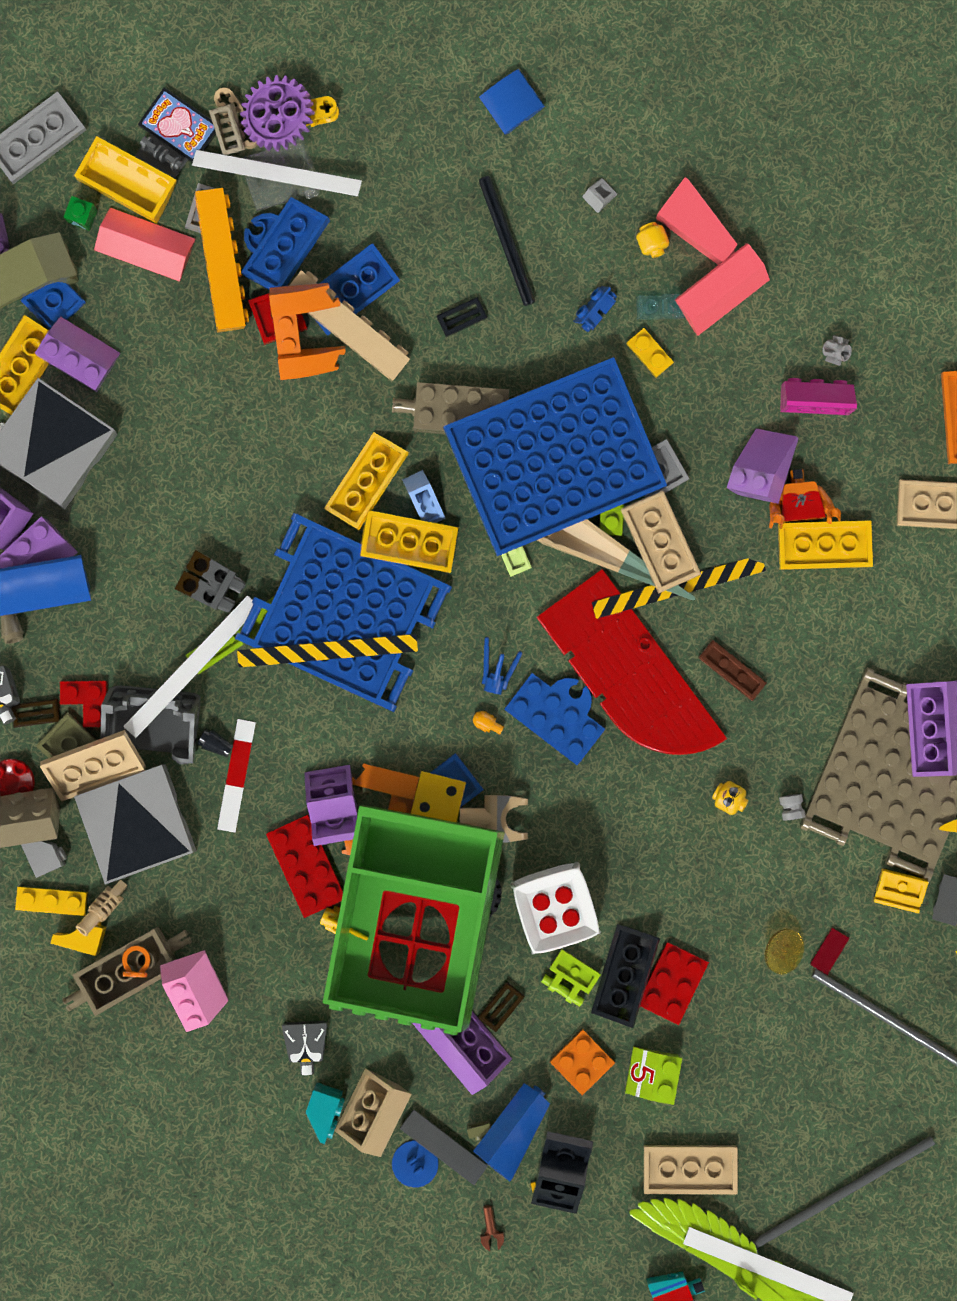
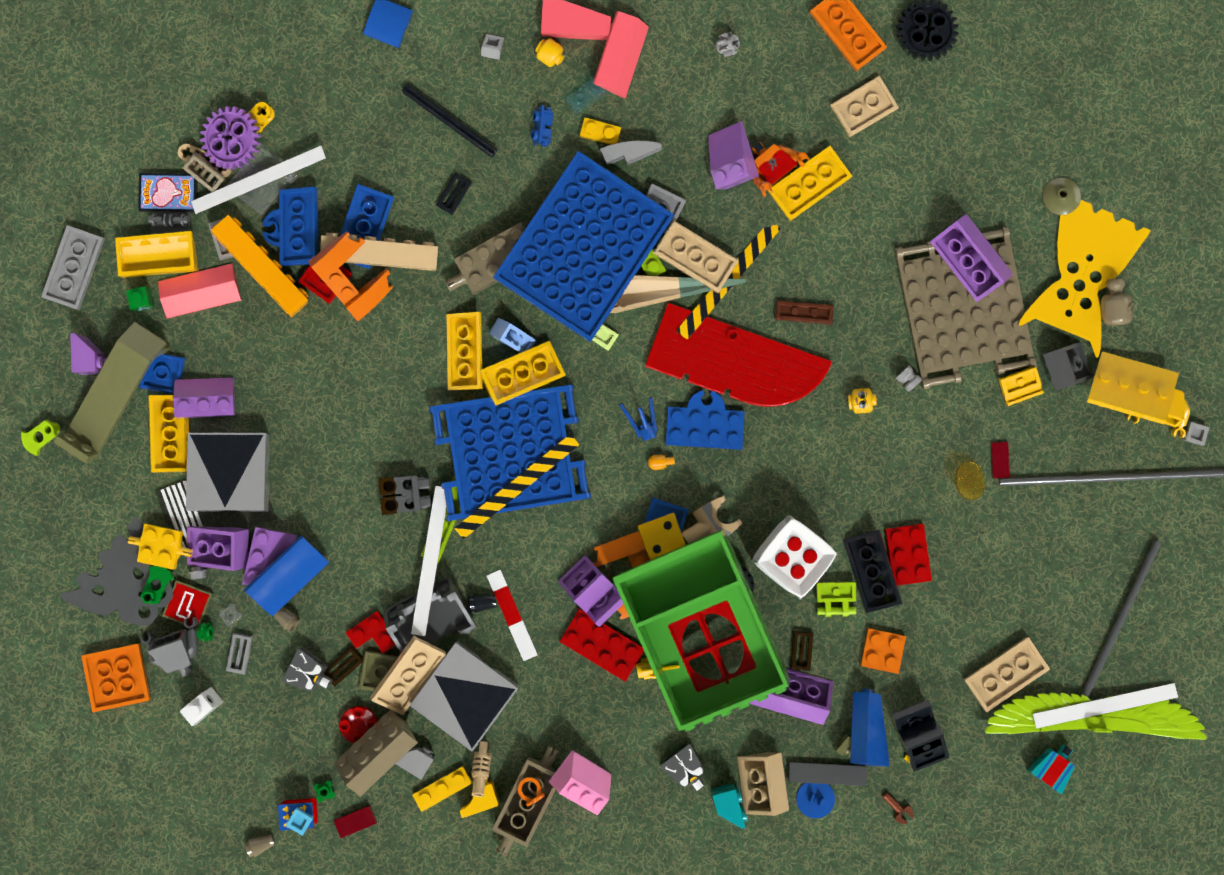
camera: 40 degrees left, 0 degrees up
(653, 1075) = (938, 626): lime slope -> none
(665, 391) = (629, 151): none -> light grey slope
(818, 397) = (736, 85): dark pink slope -> none

